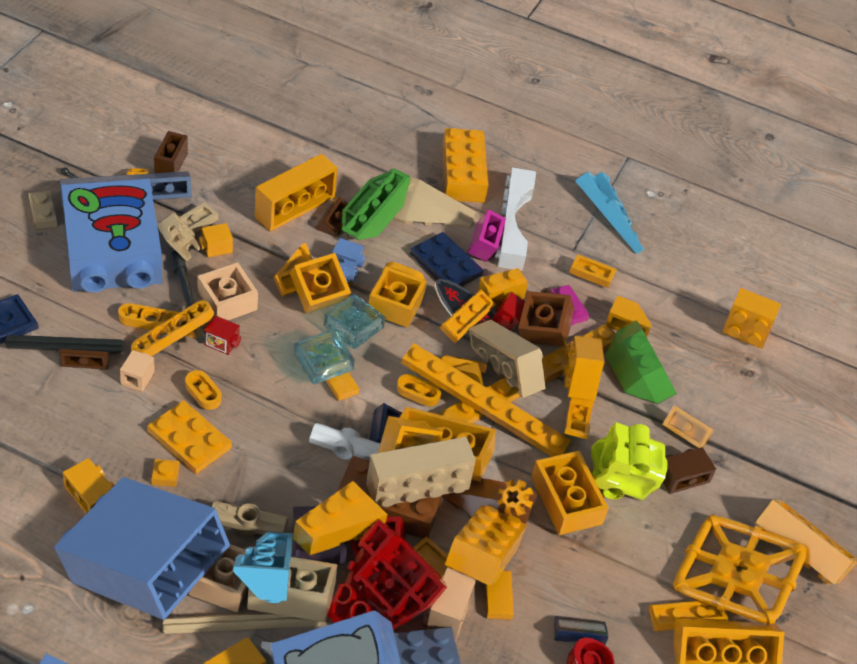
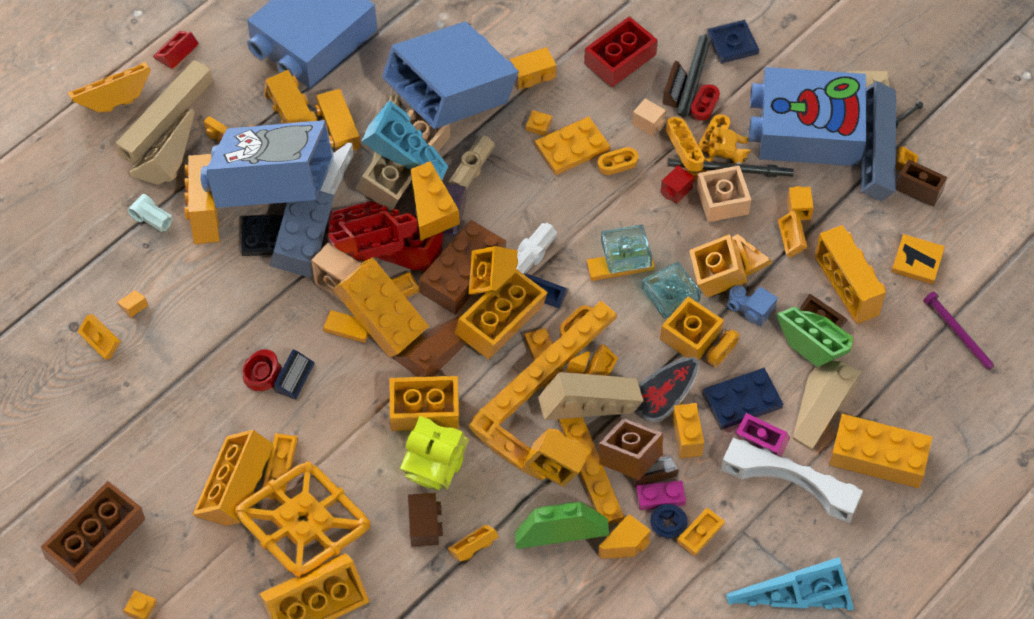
camera: 115 degrees right, 10 degrees up
(52, 404) = (620, 51): none -> red brick
(102, 327) = (702, 105): none -> red plate
(164, 297) = (725, 145): none -> light orange animal
(178, 235) = (798, 164): tan hinge -> none
(200, 217) = (832, 192): tan plate -> none
(251, 160) = (918, 259): none -> light orange tile
(254, 242) = (792, 233): none -> light orange plate
(294, 147) = (932, 299): none -> magenta bar
(420, 472) = (454, 264): tan brick -> none
(467, 316) = (653, 384): light orange tile -> none
(507, 498) = (416, 337): light orange piece -> none
(509, 311) = (654, 421): red brick -> none
(601, 294) = (665, 512): none -> dark blue gear

